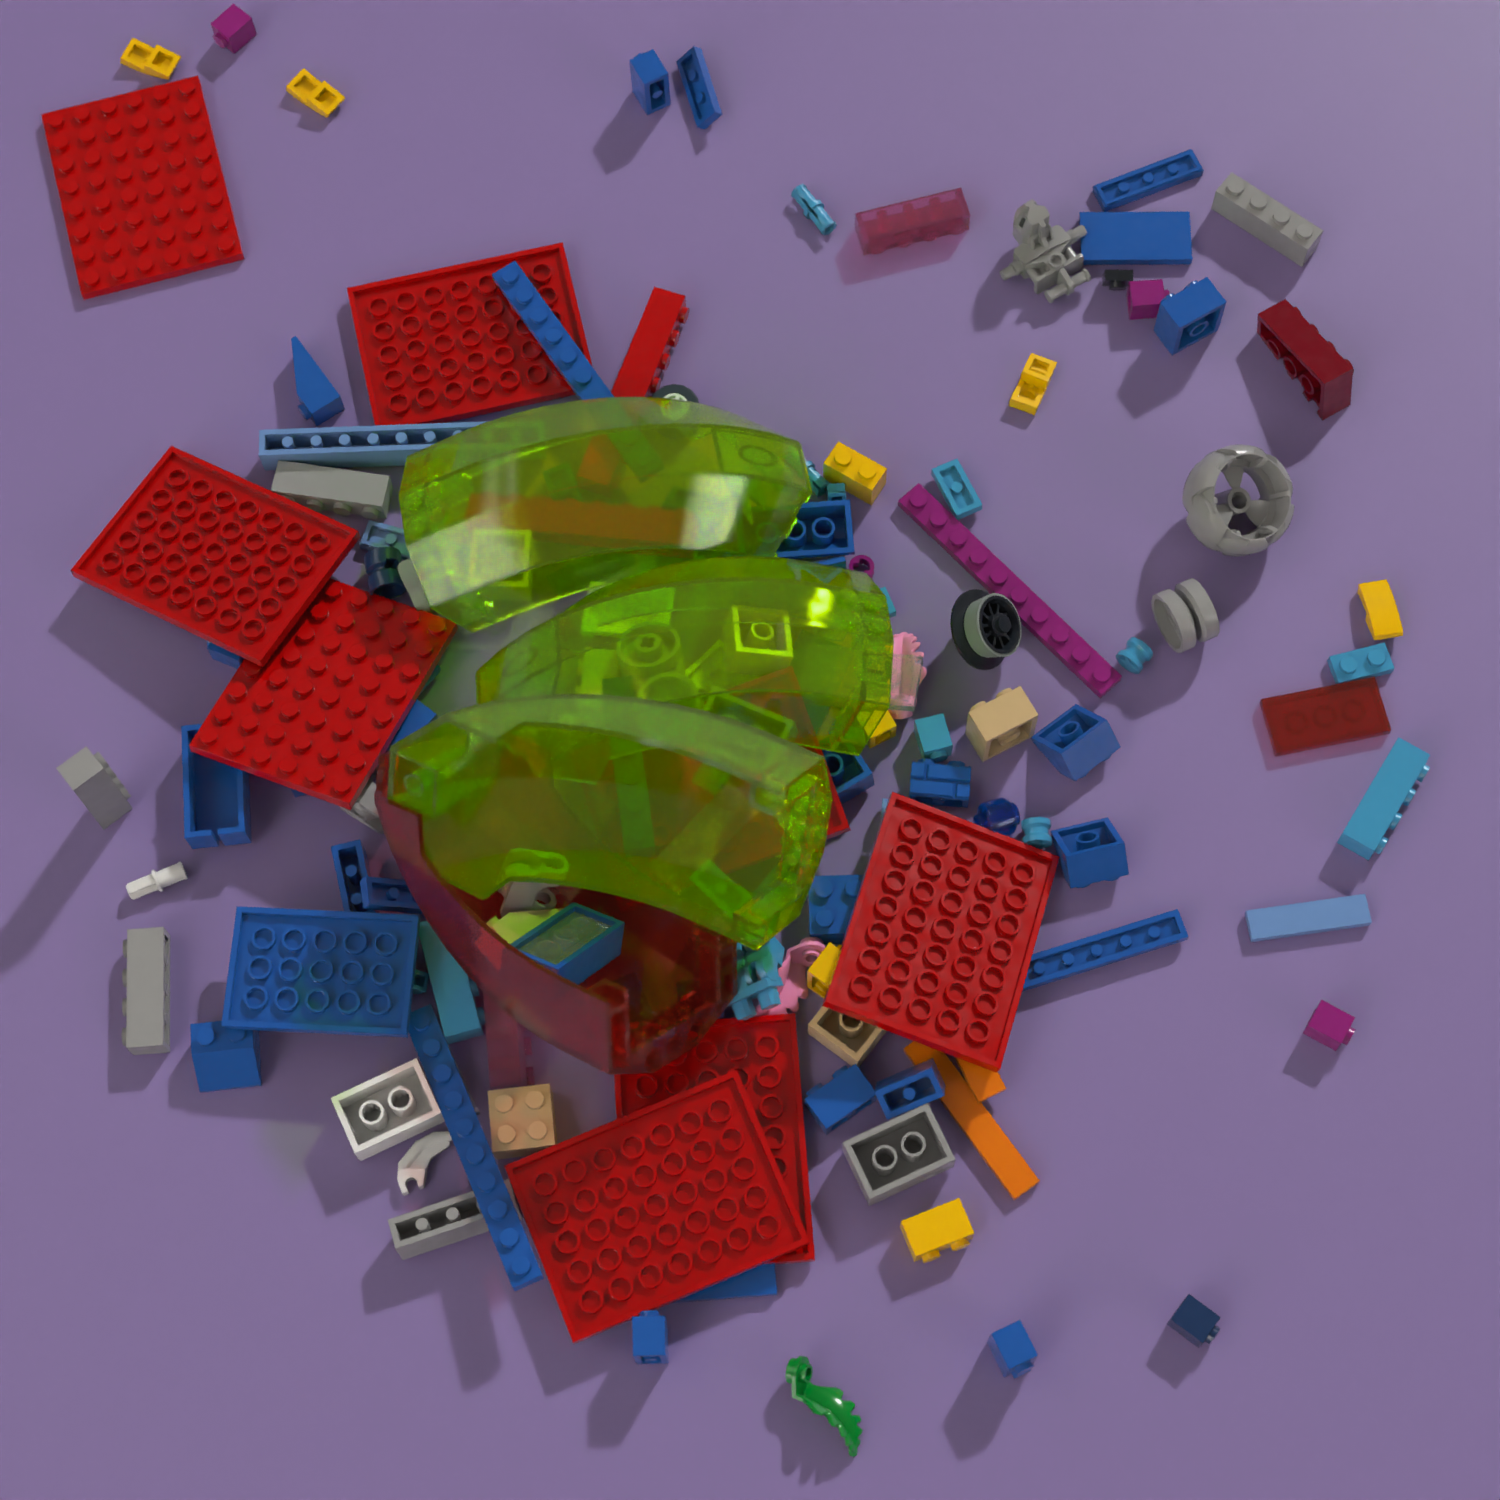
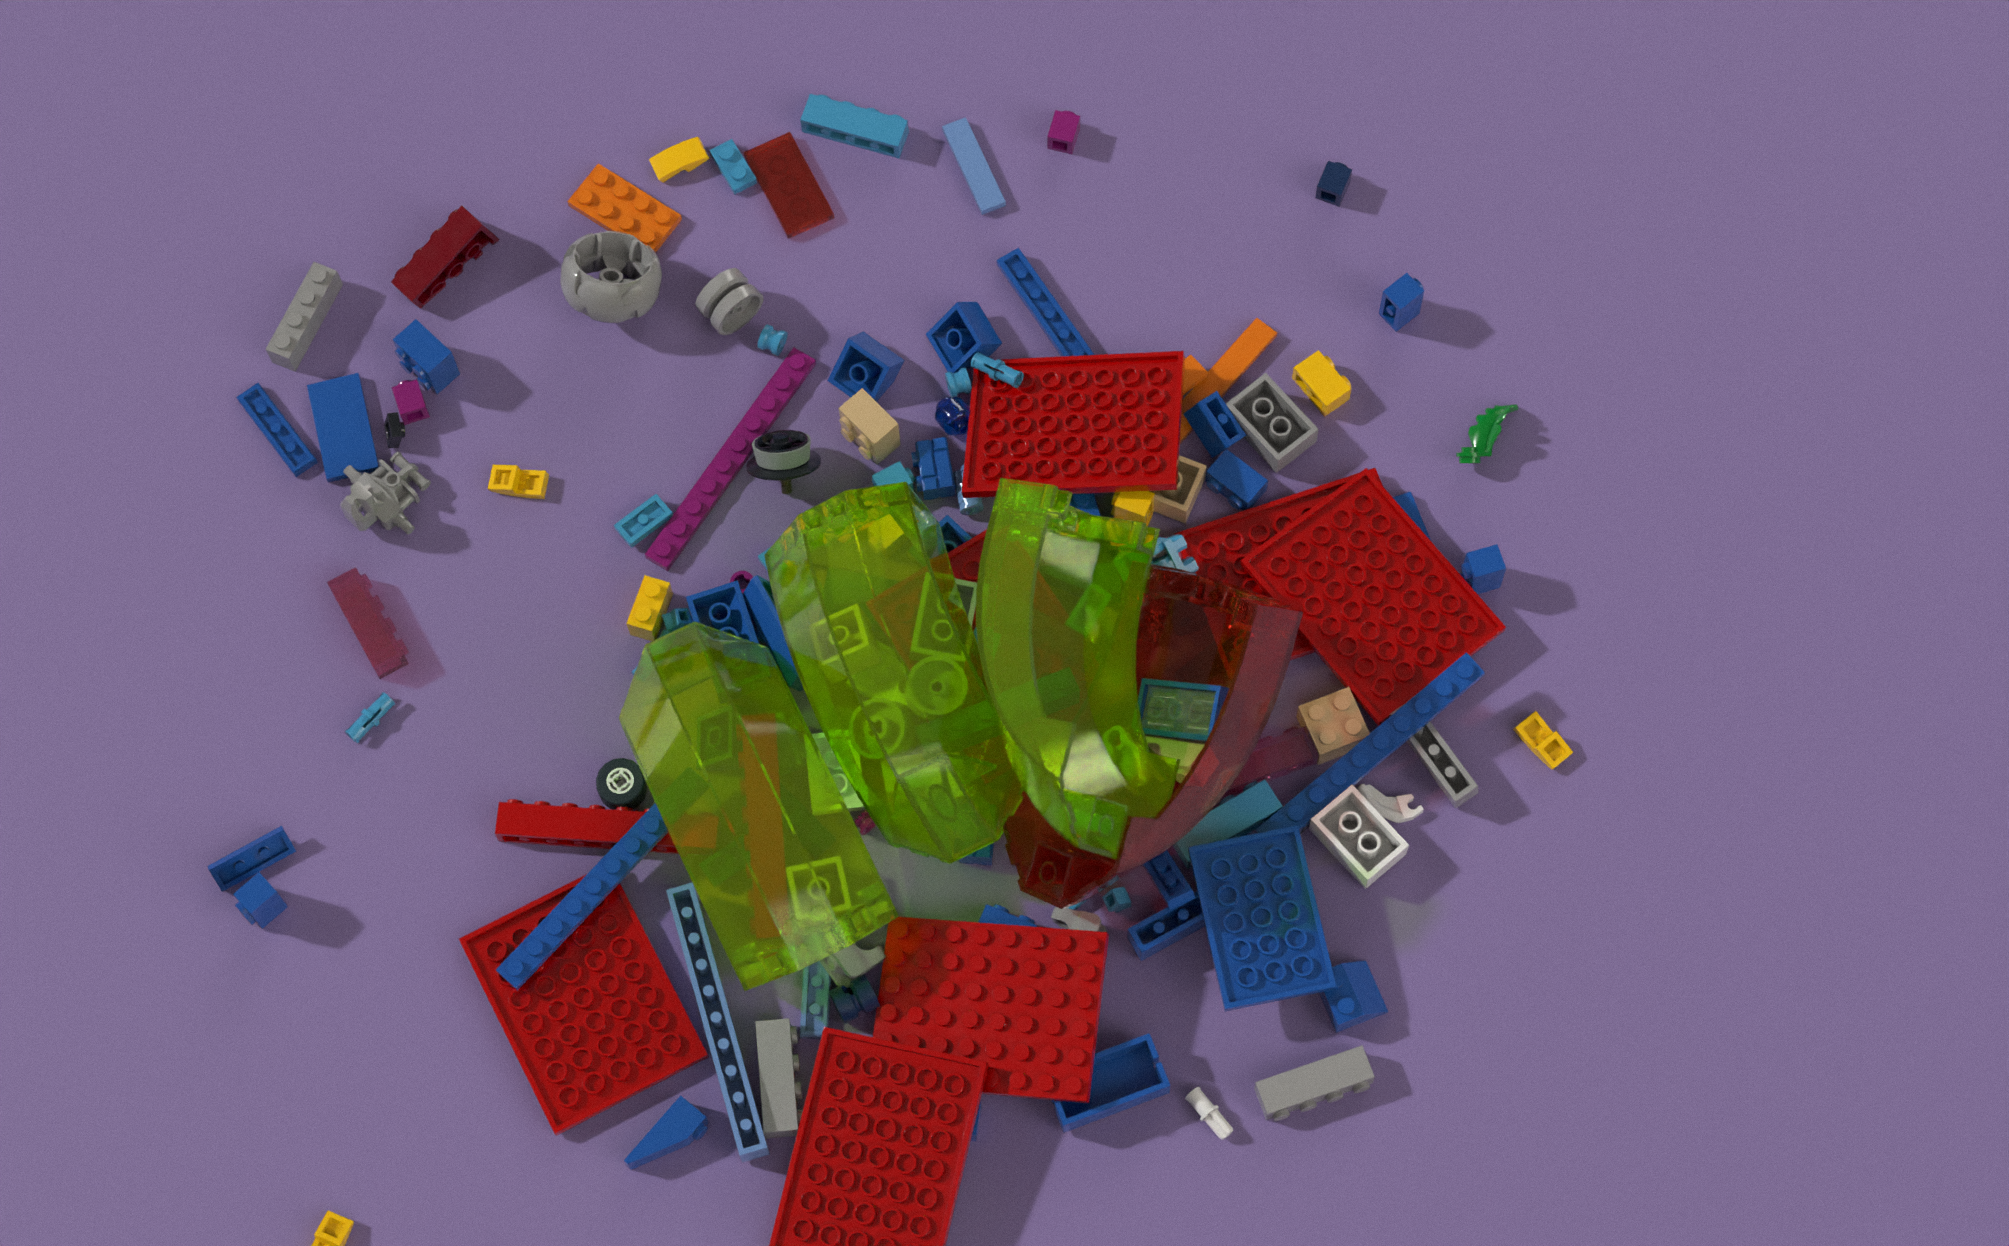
camera: 105 degrees left, 0 degrees up
(96, 786) = (1150, 1173): light grey brick -> none
(439, 1352) = (1542, 741): none -> yellow slope
(1035, 870) = (985, 363): none -> dark azure pin
(1329, 545) = (623, 208): none -> orange plate

